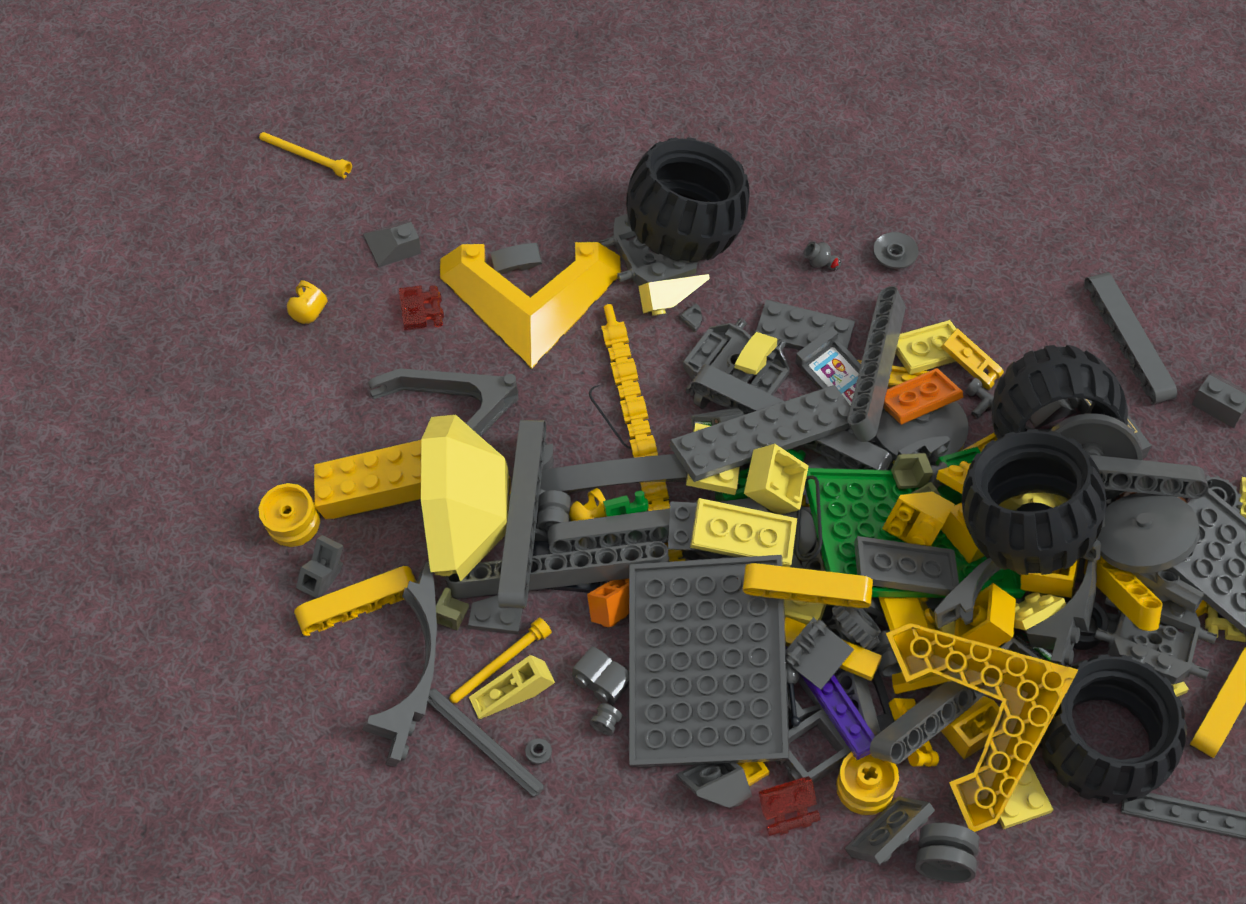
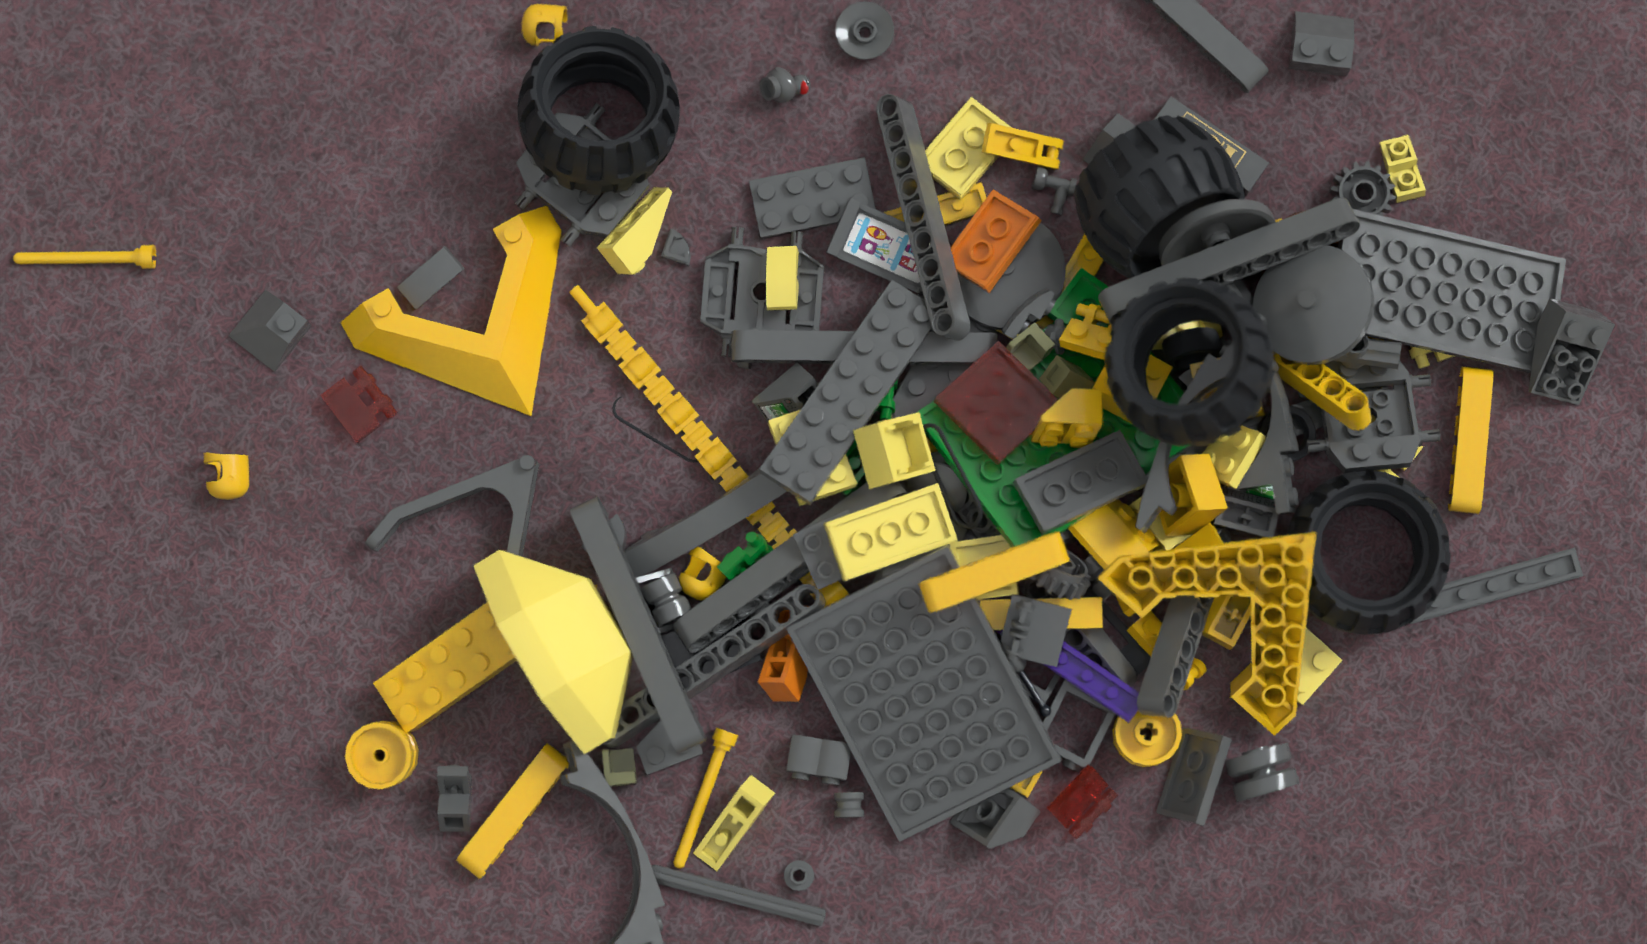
camera: 25 degrees left, 25 degrees up
(866, 487) = (996, 402): none -> clear red plate

